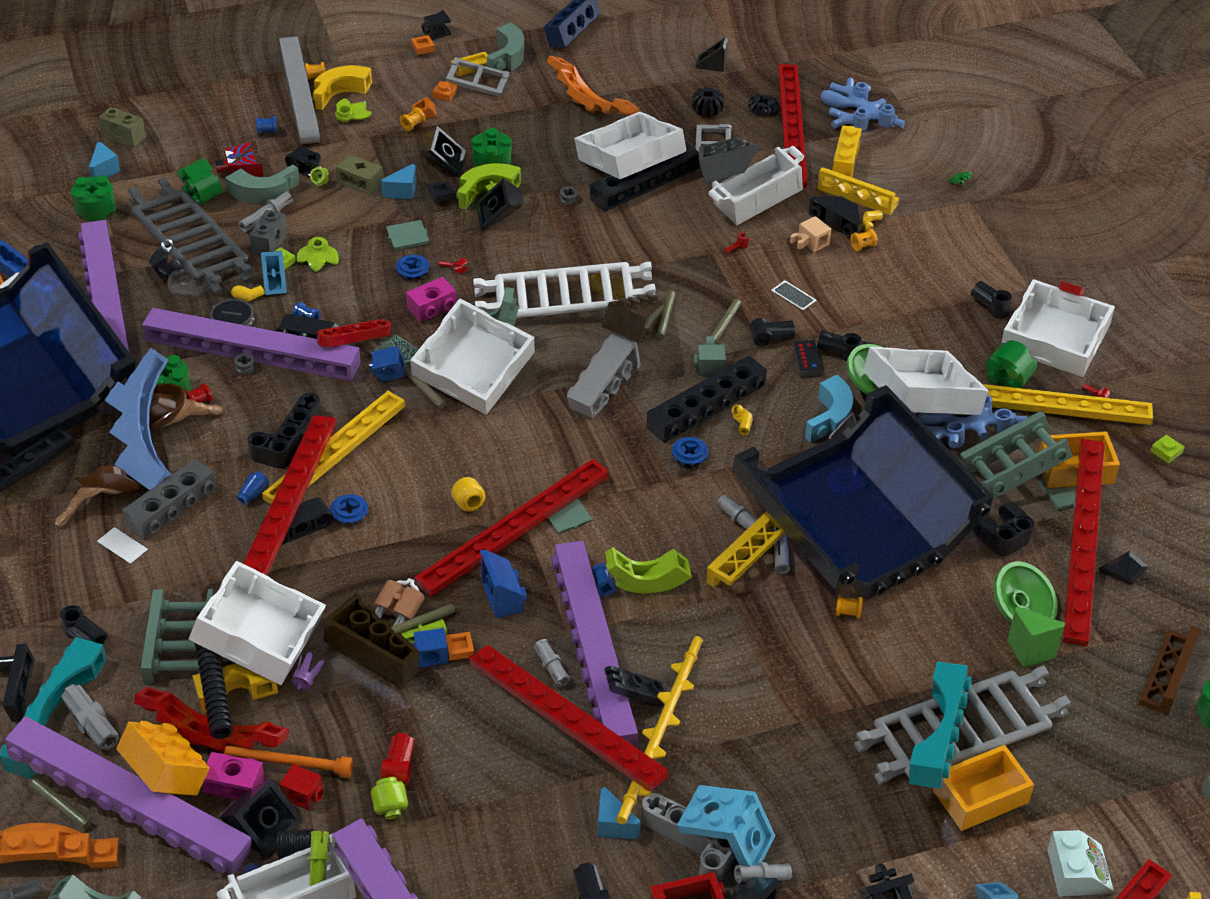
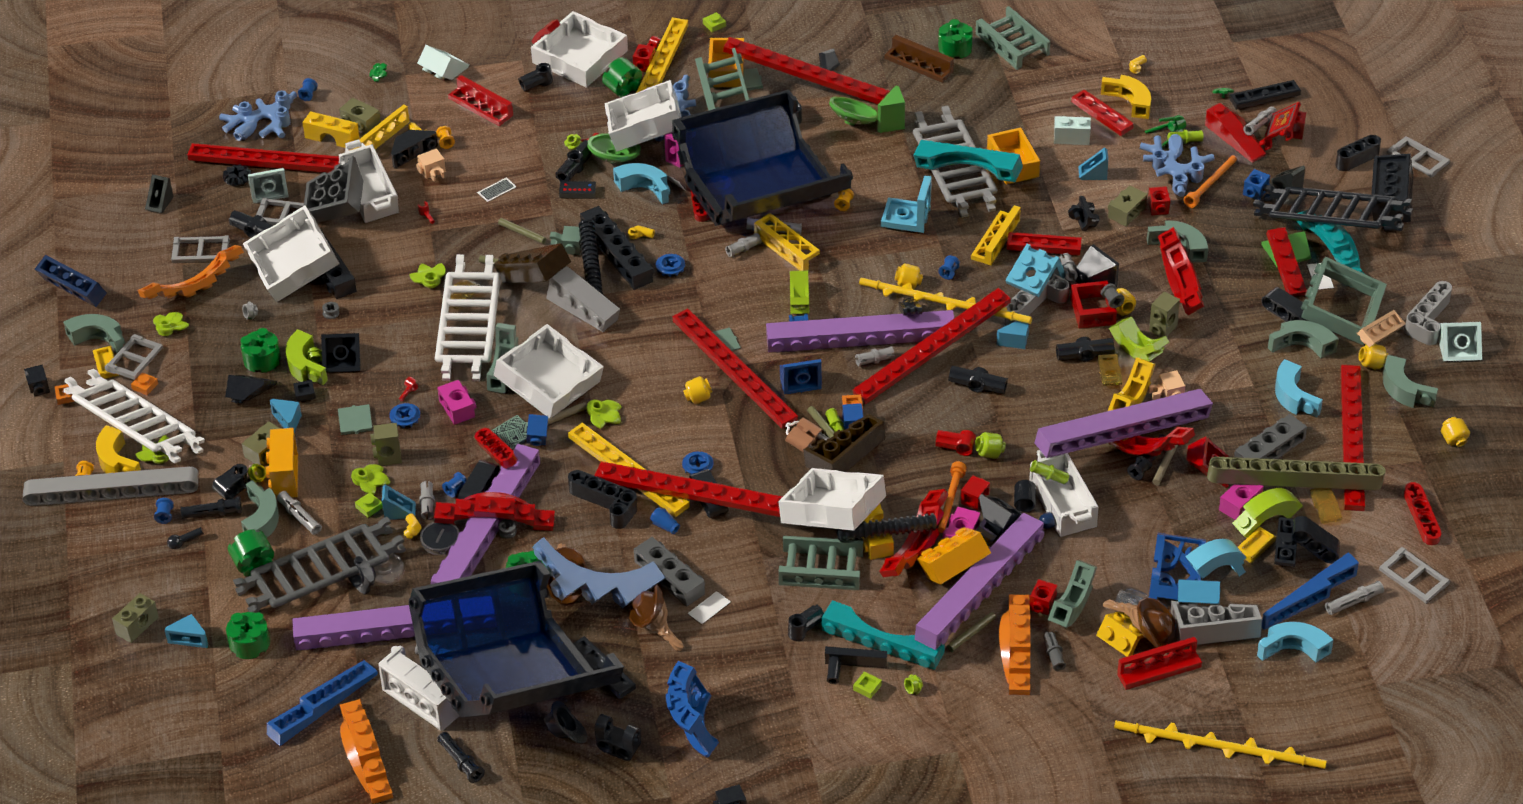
camera: 80 degrees left, 0 degrees up
(90, 717) = (897, 613): light grey piece -> none
(109, 885) = (1043, 597): none -> red brick
(212, 797) = (988, 530): none -> black window
(230, 141) = (177, 541): none -> black bar
(241, 157) = (220, 526): red torso -> none
(258, 349) = (495, 505): none -> red piece
(268, 232) = (337, 507): dark grey brick -> none
(271, 160) = (221, 507): none -> black pin
(284, 297) = (427, 500): none -> light grey pin
(322, 184) = (282, 462): none -> light orange piece
(353, 251) = (387, 444): none -> olive brick
(397, 109) = (165, 446): none -> white bar
(415, 117) = (188, 405): light orange bush -> none
(427, 107) = (169, 400): orange slope -> none
(427, 421) = (604, 412): none -> lime plate
(518, 778) = (978, 379): none -> black piece
(531, 92) = (166, 324): none -> lime plate
(556, 139) = (250, 310): none -> light grey plate
(634, 256) = (428, 276): none -> lime plate
(649, 81) = (200, 240): none -> light grey window
(671, 374) = (590, 254): none -> black piece
(687, 118) = (250, 225): none -> black piece
(708, 101) = (225, 204): black gear -> none
(708, 685) = (908, 274): none -> yellow head
(737, 731) = (949, 267): none -> blue bush
(744, 120) = (268, 185): none -> light aqua slope
(766, 332) = (545, 205): black piece -> none
(812, 843) = (1048, 243): none -> red plate
(817, 786) = (999, 239): none -> yellow fence
(836, 674) = (915, 212): none -> medium azure bracket
(879, 169) = (361, 113): none -> olive brick
(888, 341) = (572, 145): none -> lime plate
(911, 130) = (306, 92): none -> blue bush
(939, 265) = (485, 99): none -> red fence
(992, 221) = (441, 63): none -> light aqua slope
(1063, 382) = (643, 56): none -> red brick

